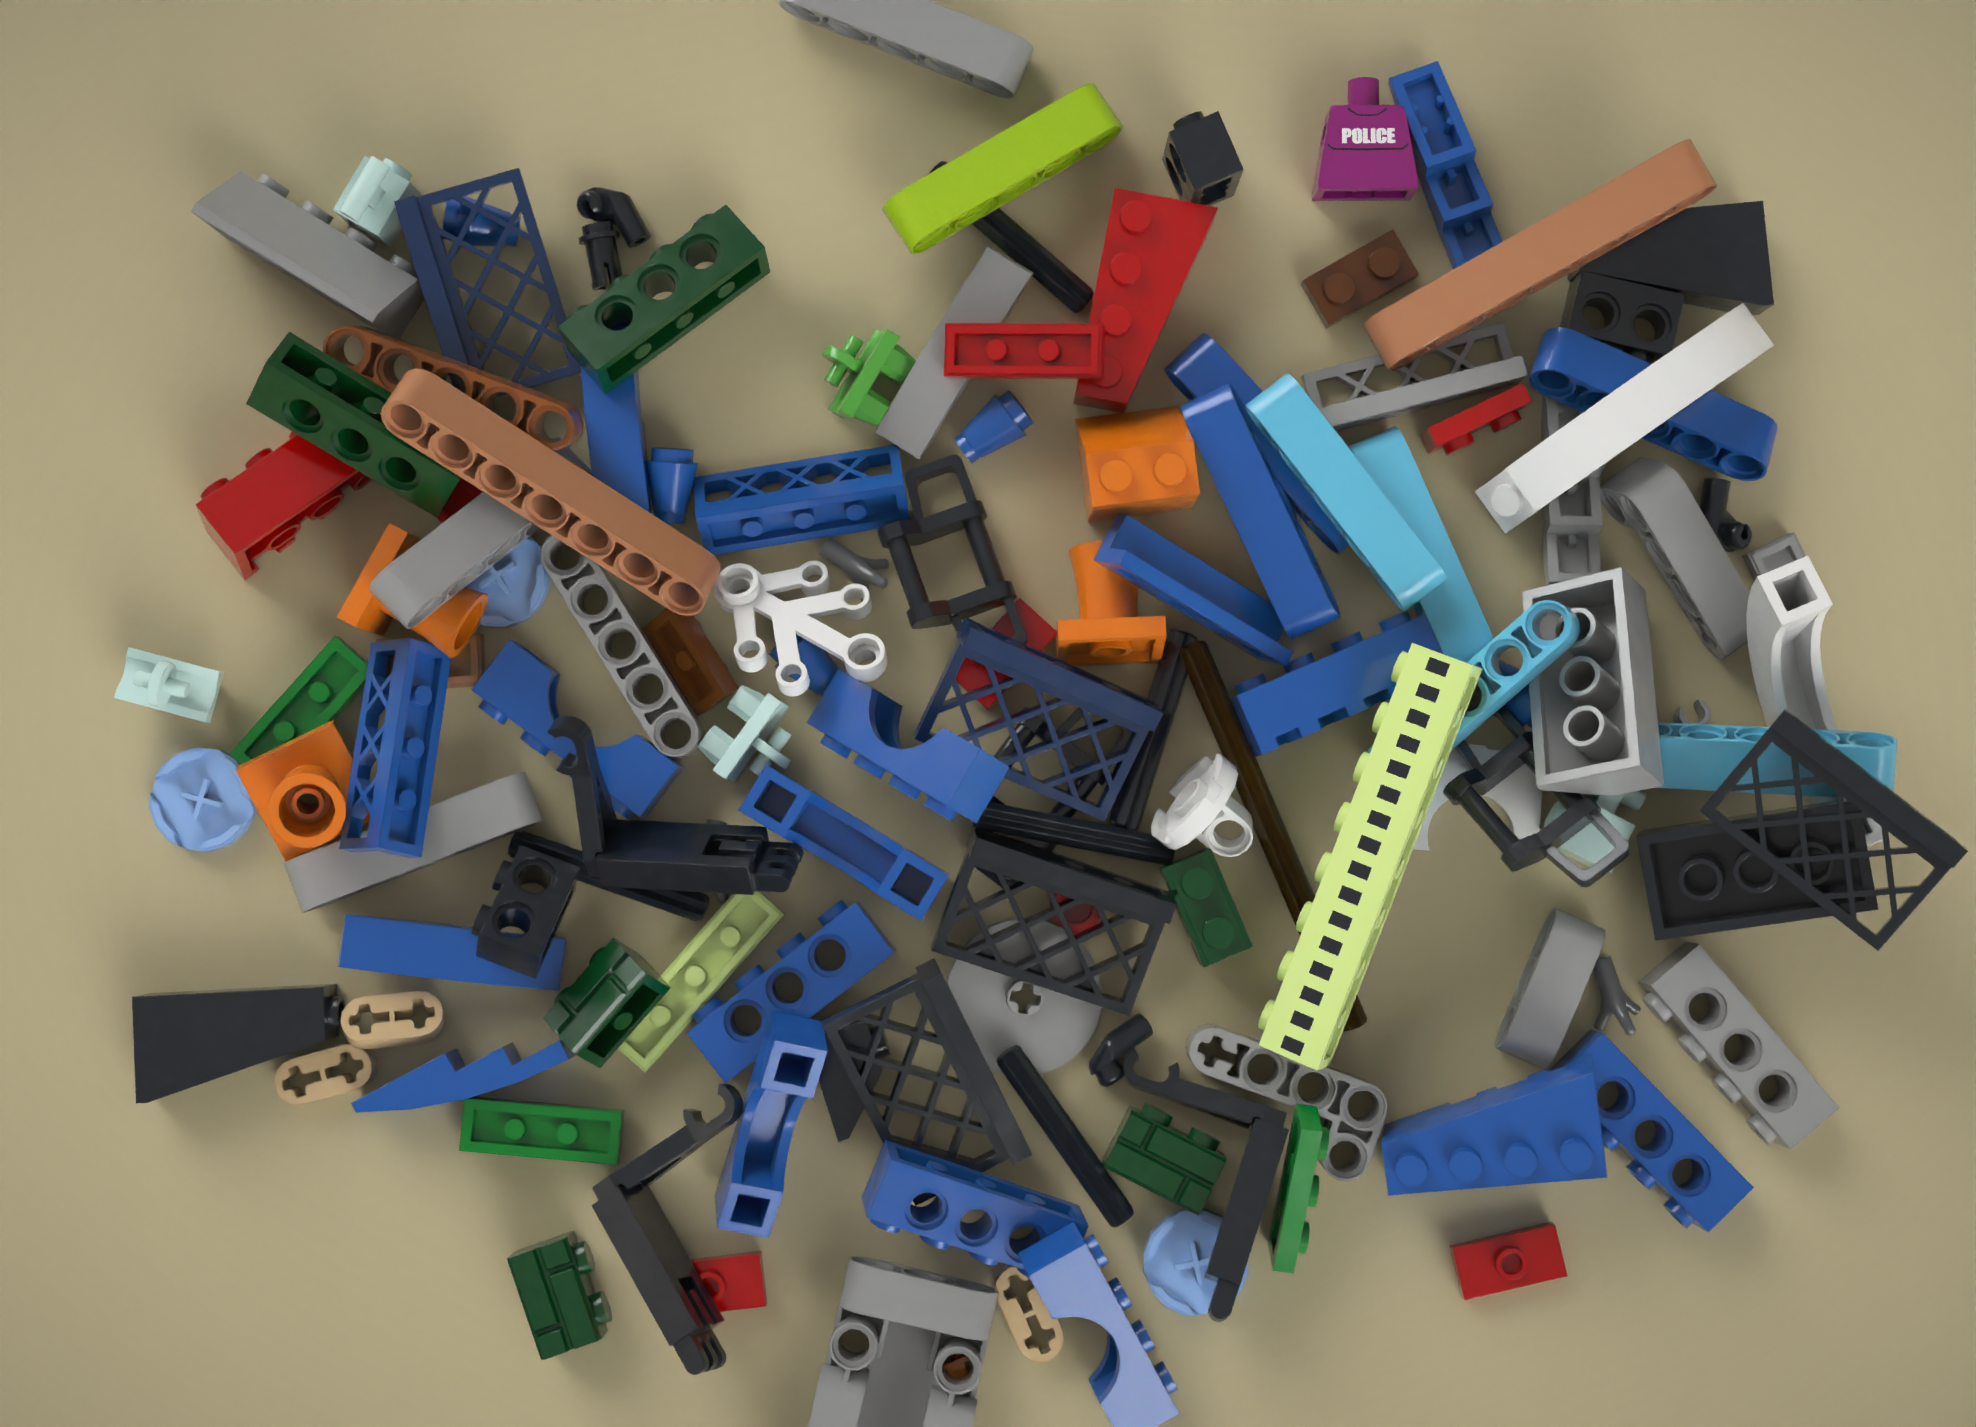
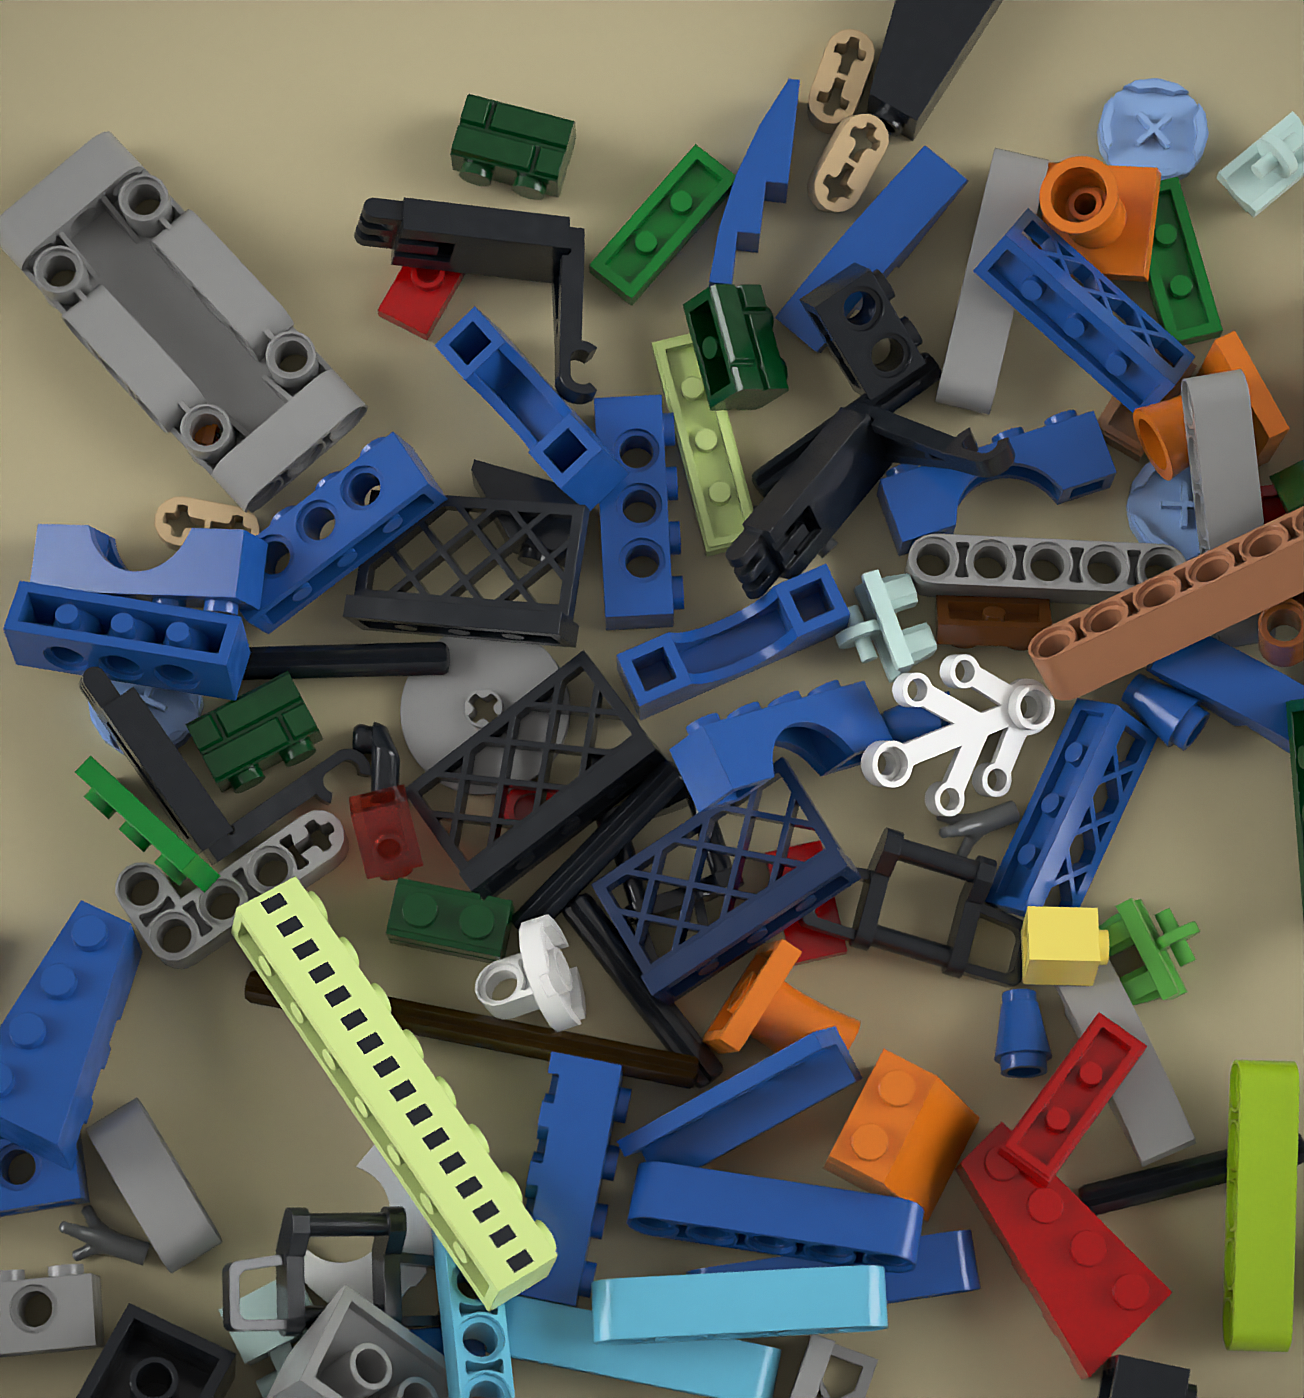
camera: 120 degrees right, 10 degrees down
(910, 436) = (1062, 946): none -> light yellow brick
(1168, 1307) = (128, 640): none -> blue brick
(1172, 1003) = (386, 833): none -> clear red brick

